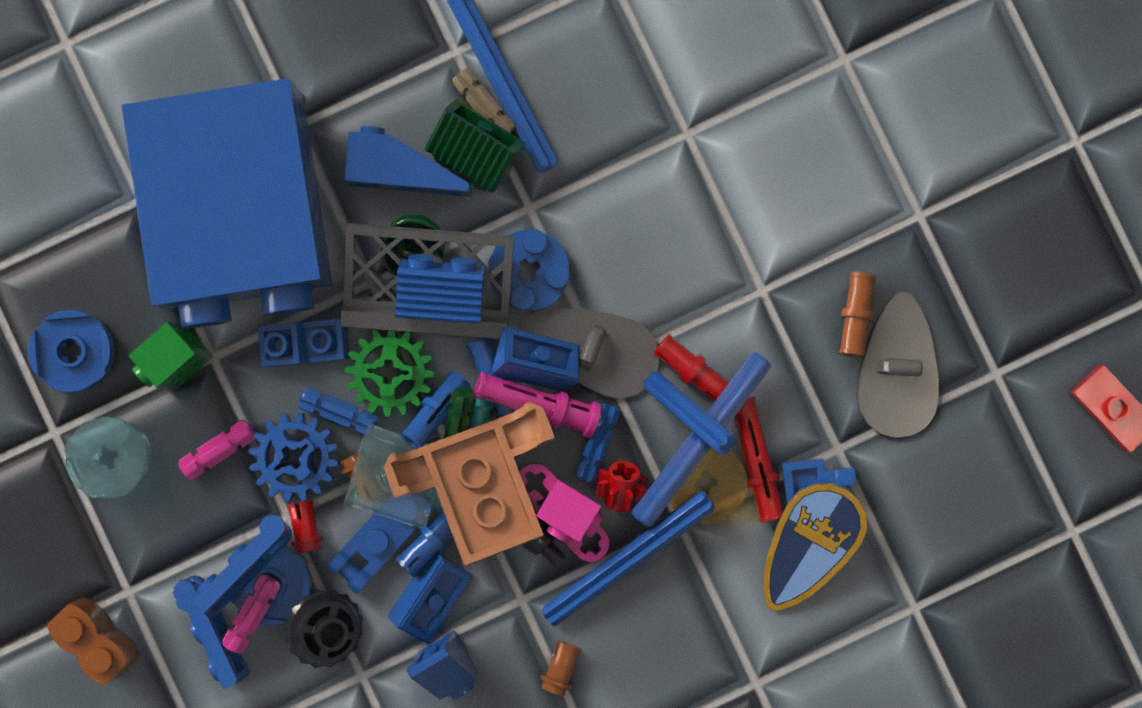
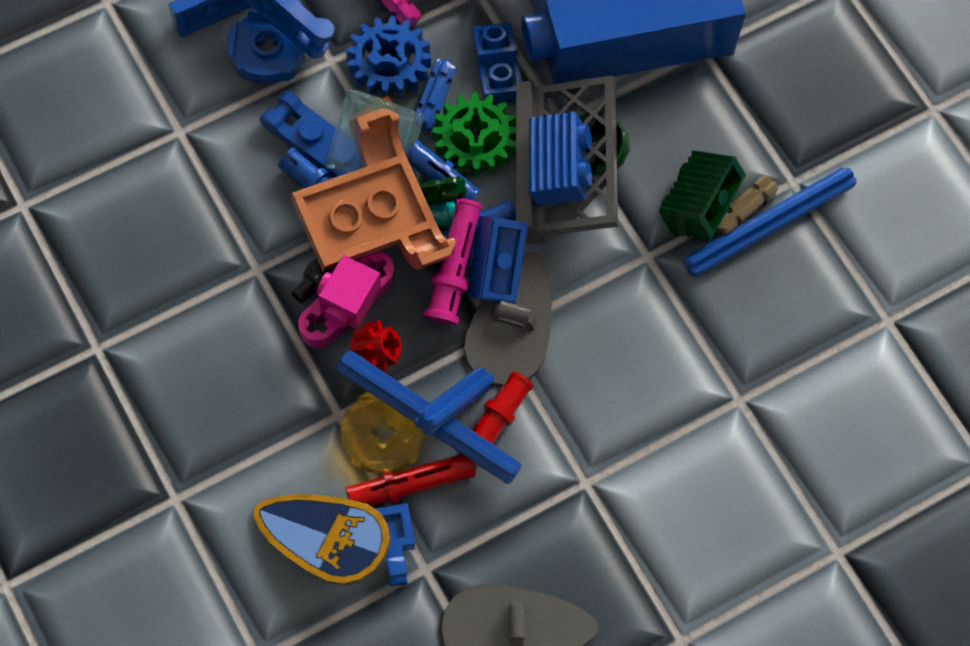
camera: 85 degrees right, 20 degrees down
(251, 614) = (239, 24): dark pink axle -> none
(304, 527) = (322, 71): red pin -> none
(324, 628) = (226, 92): black piece -> none
(389, 164) = (676, 122): blue slope -> none
(430, 597) = (256, 185): blue slope -> none
(444, 668) = (191, 184): blue slope -> none
(552, 276) = (581, 276): blue plate -> none
(560, 668) = (190, 304): dark orange pin -> none
(598, 444) = (419, 328): blue axle -> none
(628, 558) = (304, 358): blue axle -> none
(857, 314) = (569, 574): dark orange pin -> none

